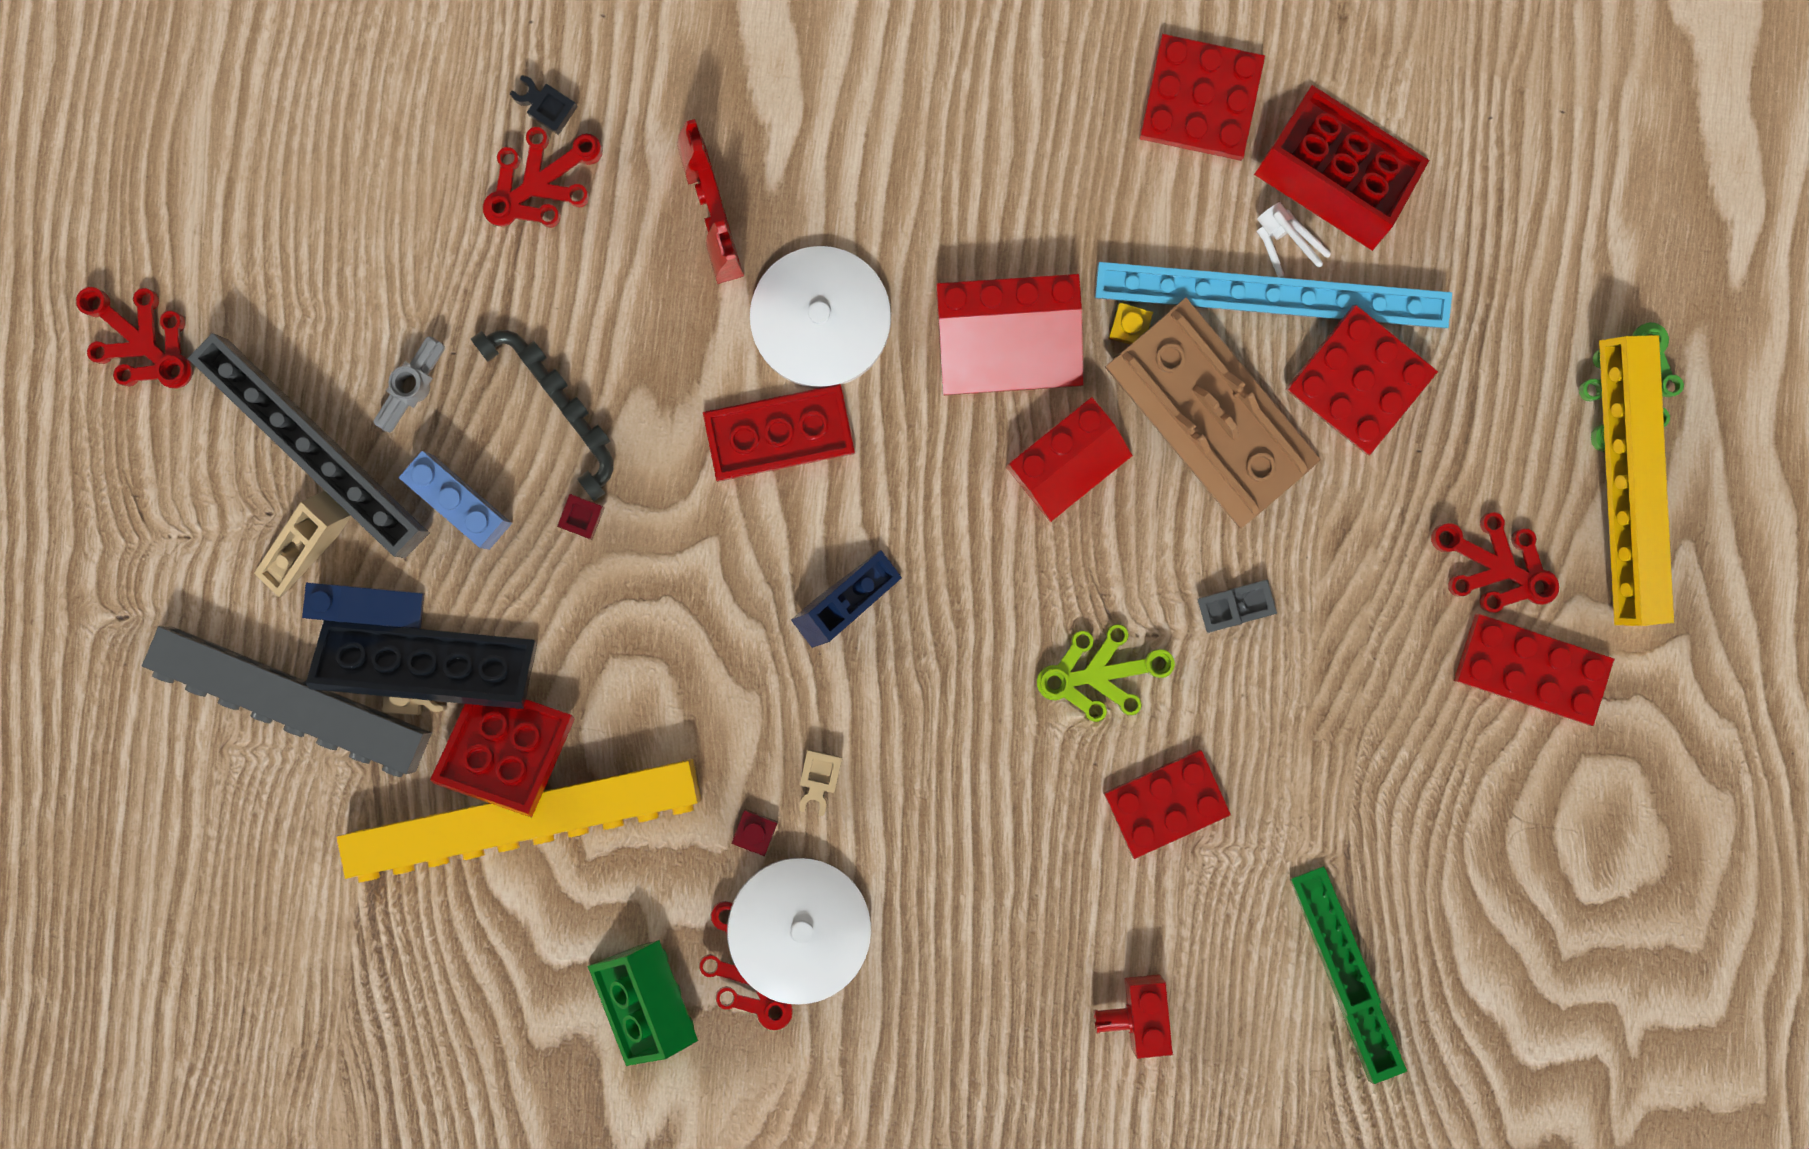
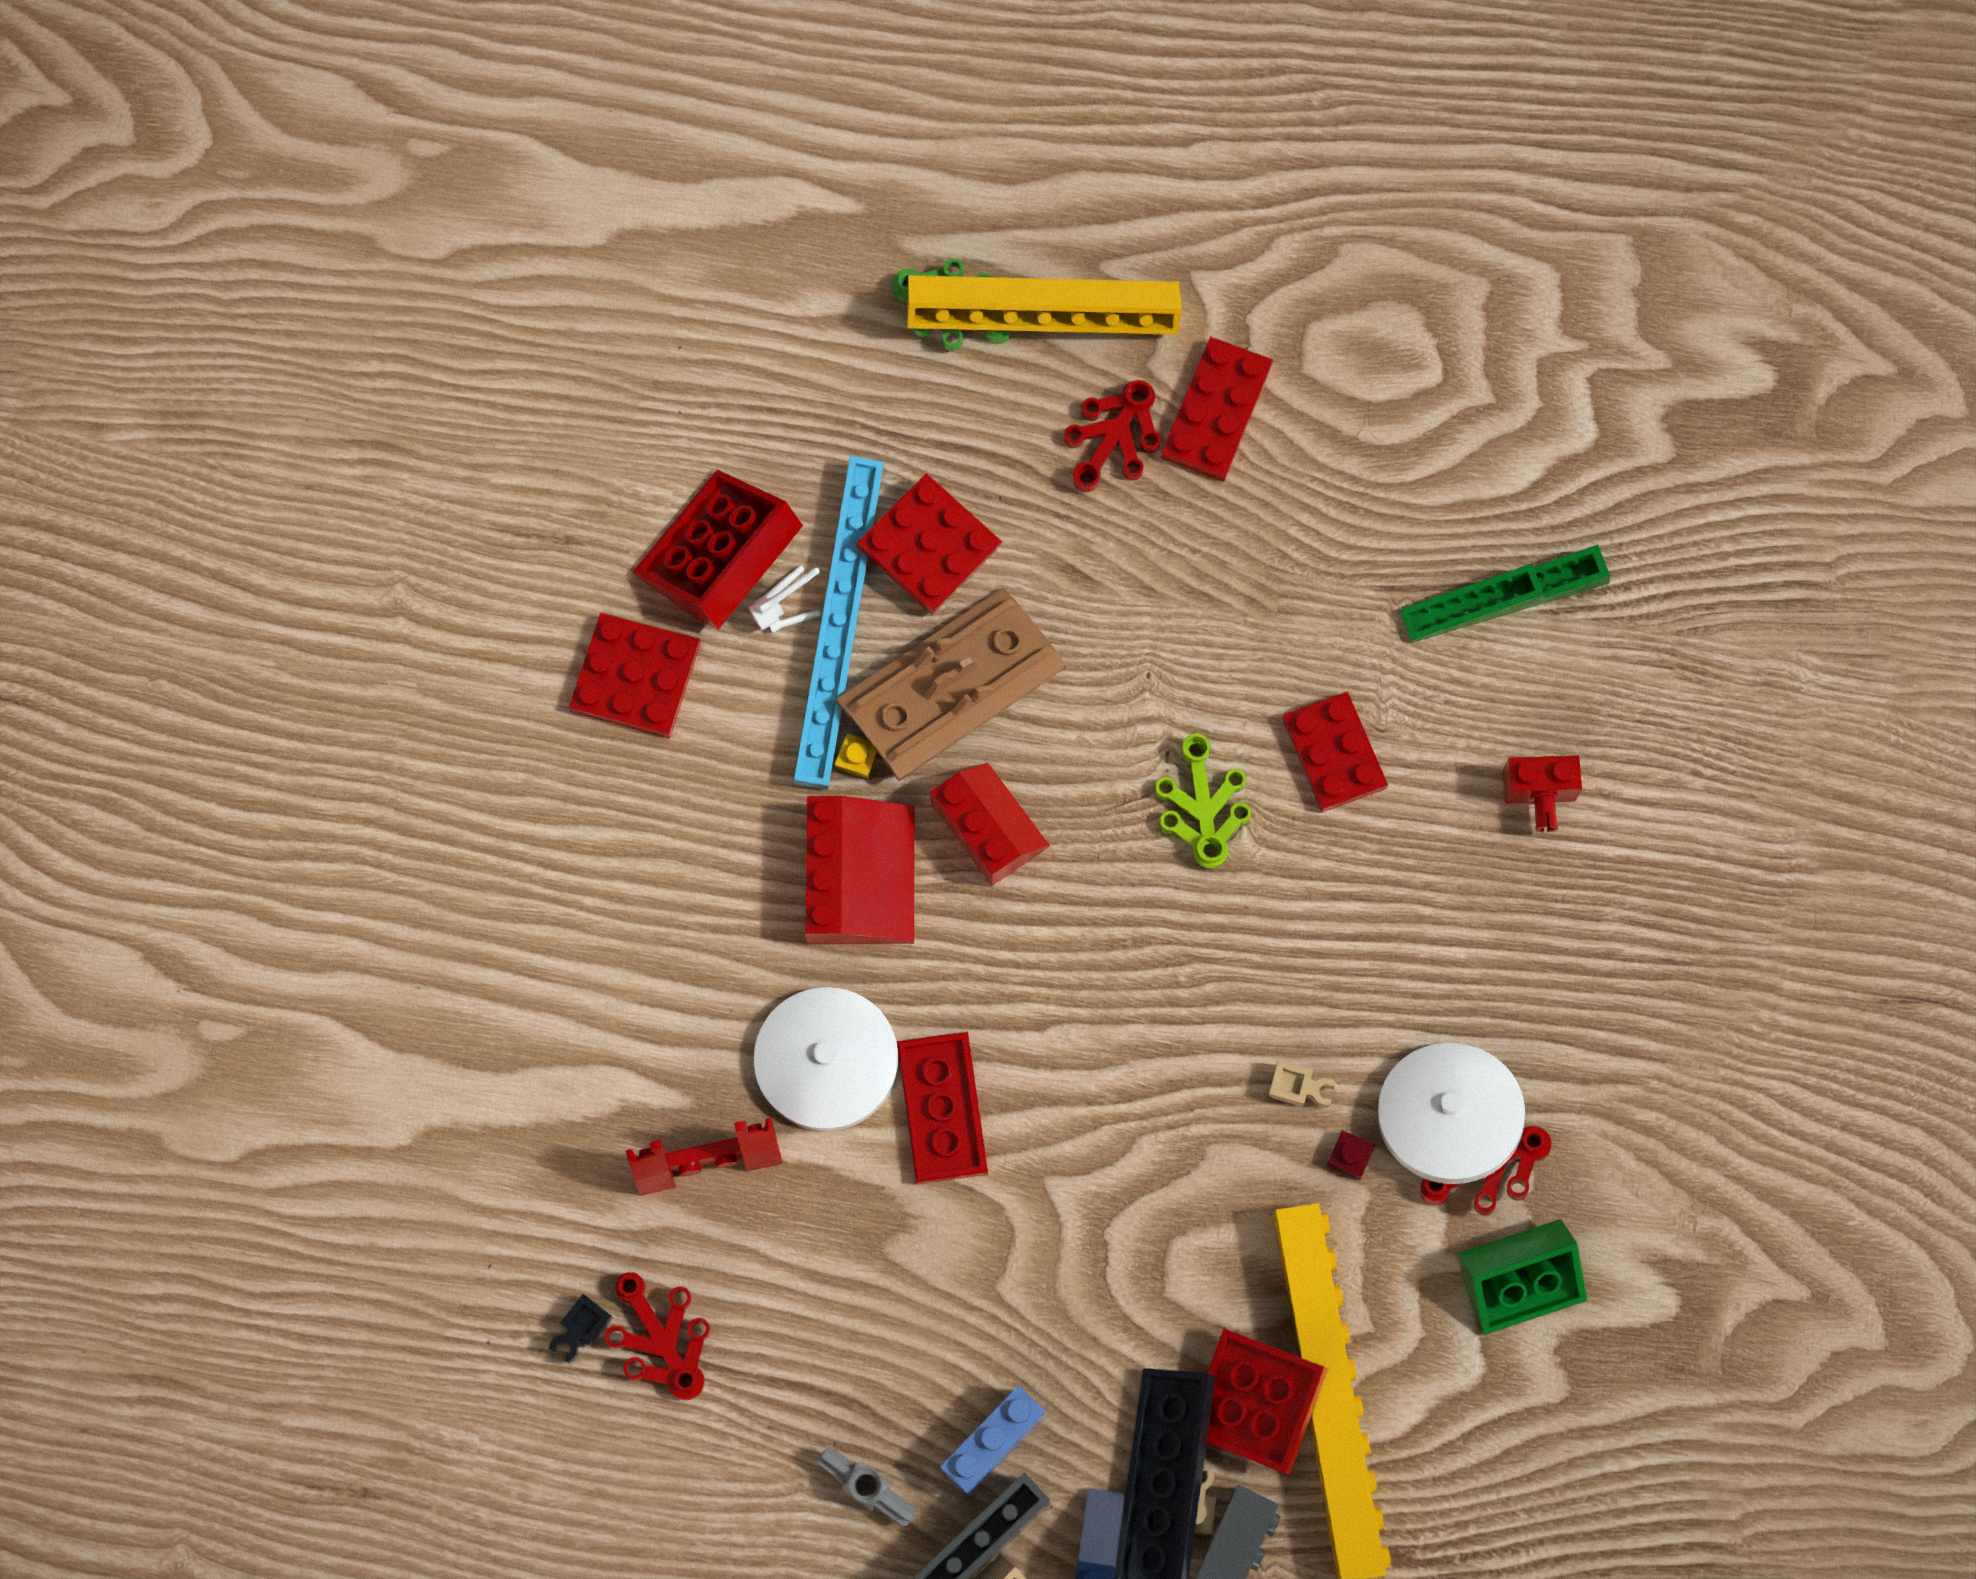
camera: 90 degrees left, 15 degrees down
(553, 385) = (905, 1317): pearl dark grey bar -> none
(580, 516) = (1017, 1313): dark red plate -> none
(846, 600) = (1119, 1047): dark blue slope -> none
(1237, 606) = (1142, 673): dark grey slope -> none

